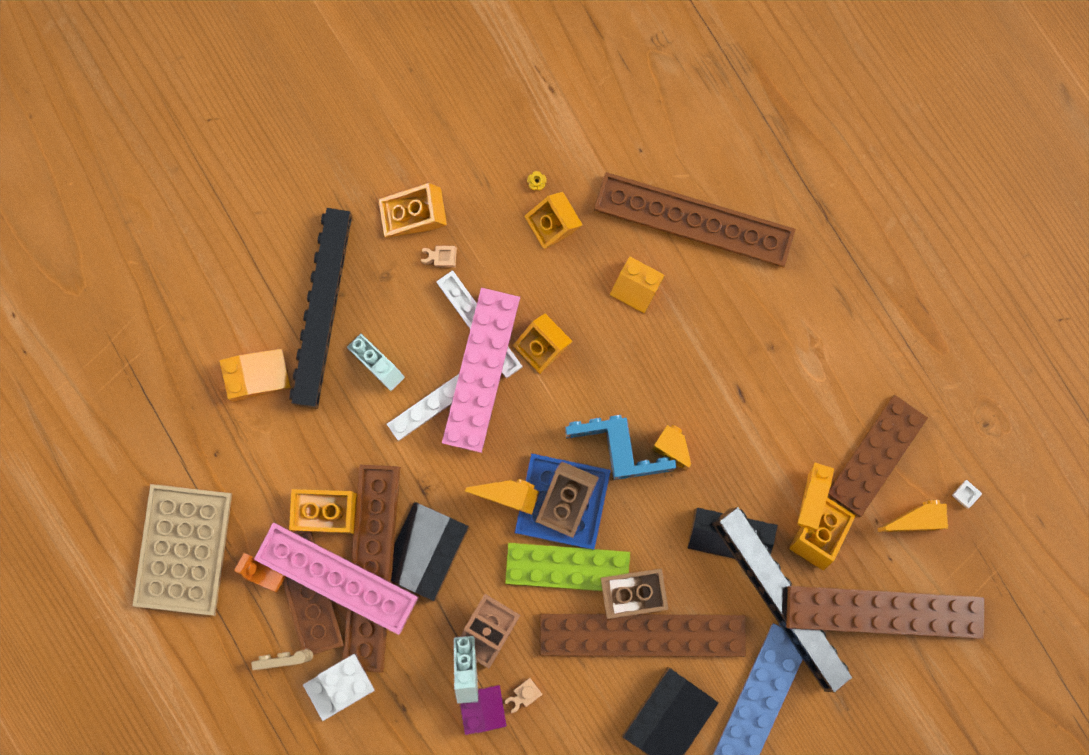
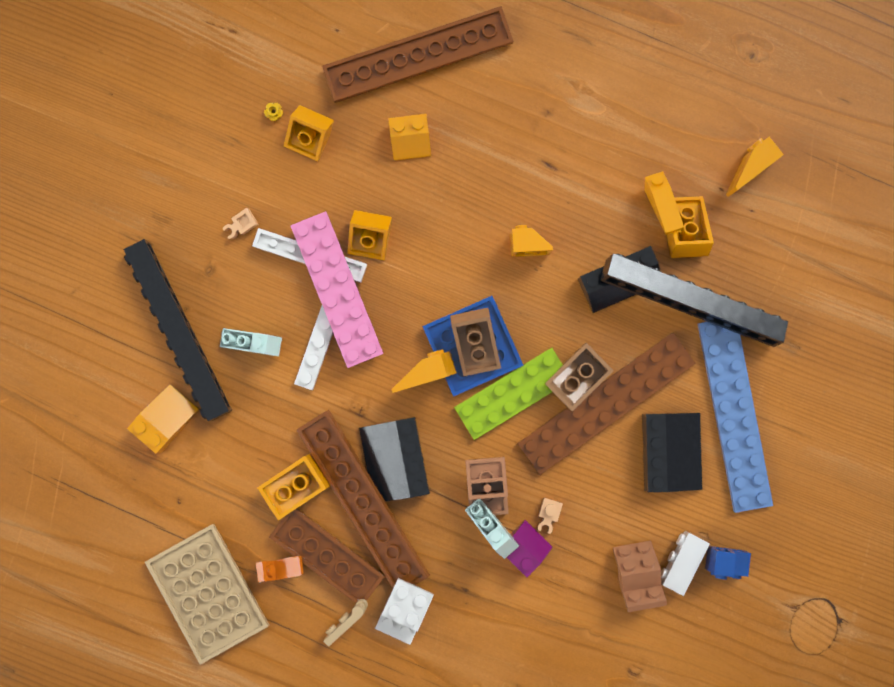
camera: 30 degrees left, 5 degrees up
(336, 578) = (341, 531): bright pink plate -> none
(413, 211) = (193, 203): light orange slope -> none
(619, 447) = (487, 273): dark azure bracket -> none
(877, 455) = (687, 138): dark orange plate -> none
(885, 612) = (778, 254): dark orange plate -> none
(966, 494) = (776, 119): white plate -> none

